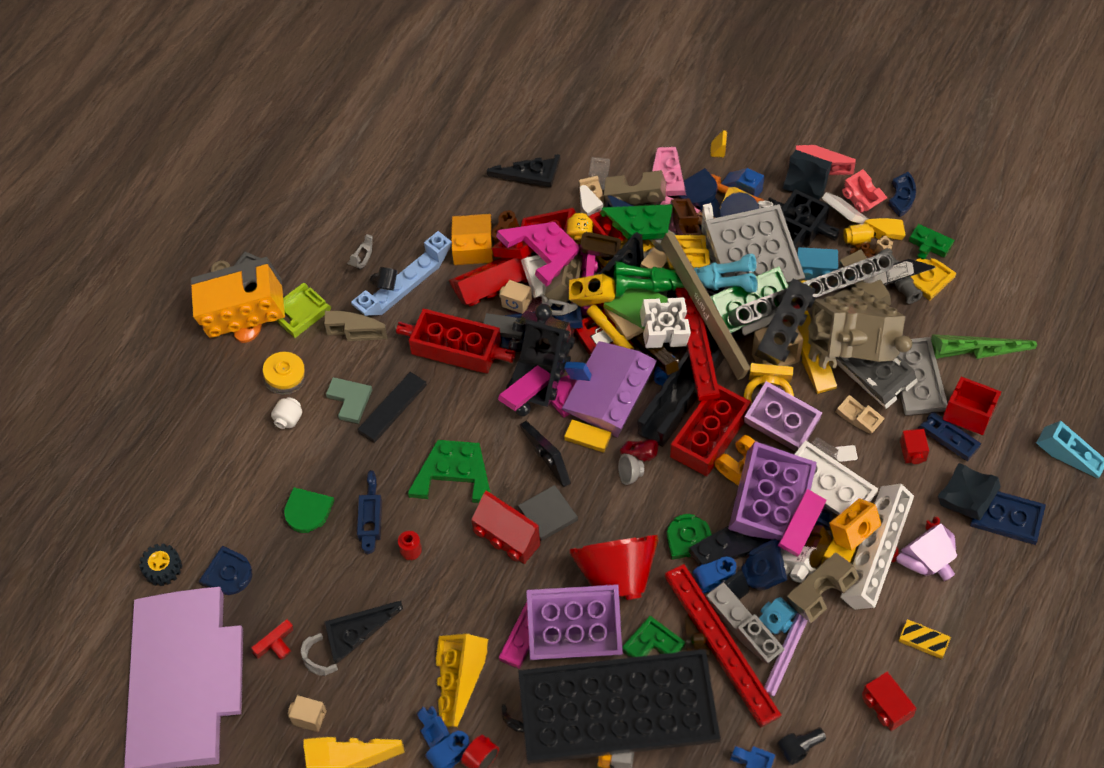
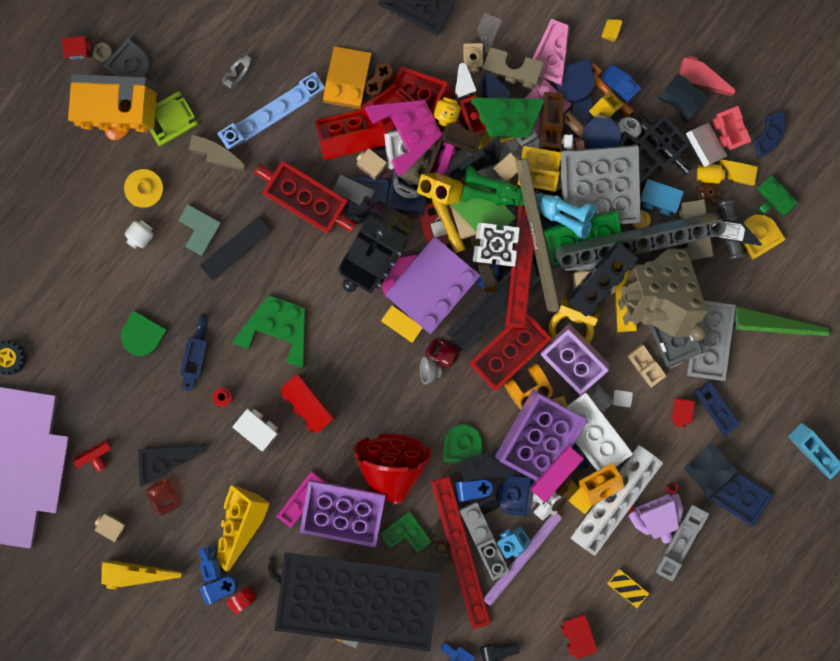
camera: 10 degrees right, 30 degrees up
(192, 267) = (76, 48): none -> red brick
(228, 571) = (64, 377): dark blue tile -> none
(314, 668) = (117, 480): light grey helmet -> none
(359, 663) = (161, 492): none -> clear red piece
(384, 278) = (254, 113): black pin -> none
(454, 566) = (256, 429): none -> white brick
(525, 388) = (356, 273): dark pink tile -> none
(548, 452) = (358, 332): black wing -> none
(548, 511) = (348, 391): dark grey tile -> none
(578, 371) = (407, 267): blue tile -> none
(833, 573) = (541, 534): dark tan arch -> none
(882, 244) = (724, 195): tan hose -> none
(966, 573) = (681, 542): none -> light grey slope
(971, 405) = (744, 388): red piece -> none

